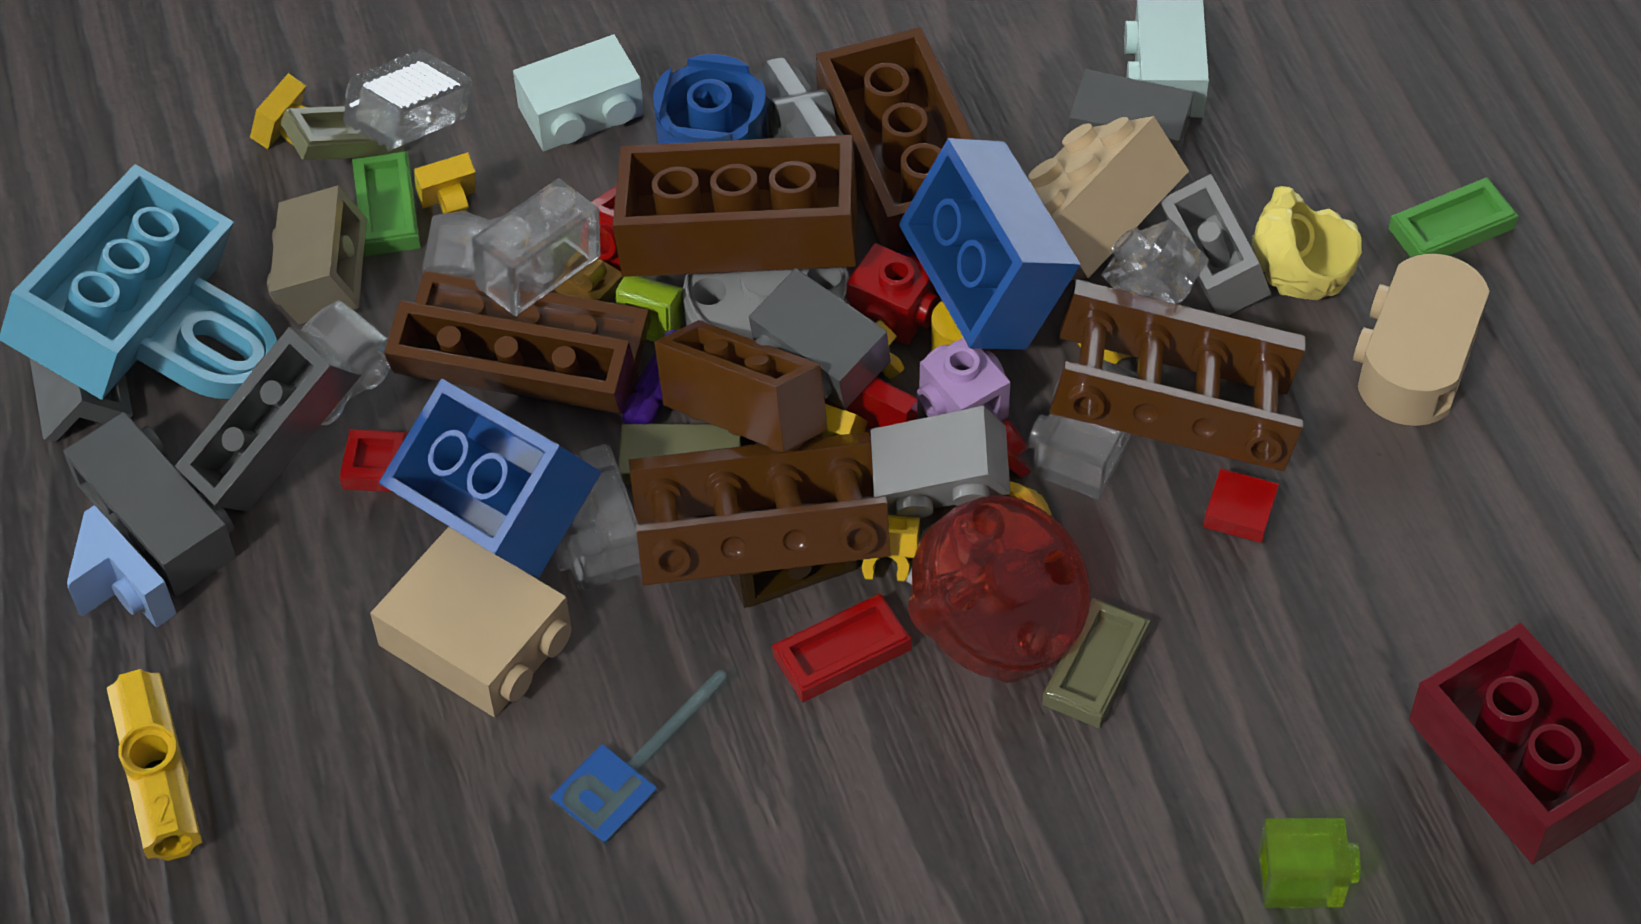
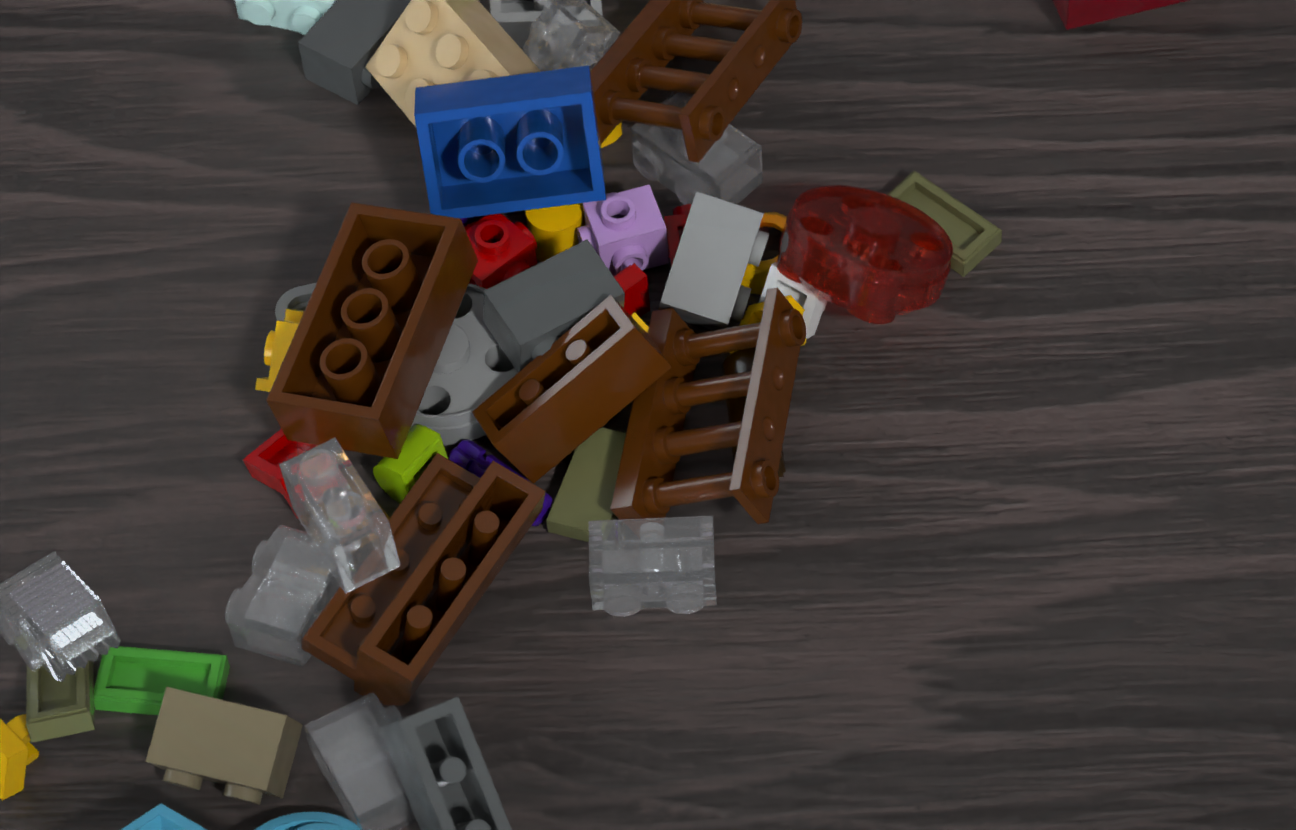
camera: 70 degrees left, 0 degrees up
(368, 457) = (505, 748): red tile -> none
(446, 183) = (180, 612): yellow tile -> none
(472, 622) = (739, 689): tan brick -> none
(490, 478) = (604, 617): blue brick -> none
(578, 92) = (108, 469): light aqua brick -> none
(608, 790) = (948, 627): piece -> none
(709, 102) = (207, 356): blue brick -> none
(793, 105) = (244, 279): dark grey piece -> none
(841, 647) = (859, 406): red tile -> none
(899, 119) = (285, 200): reddish brown brick -> none
(1240, 505) = (813, 79): red tile -> none
(1307, 862) = (1189, 127): clear neon green brick -> none

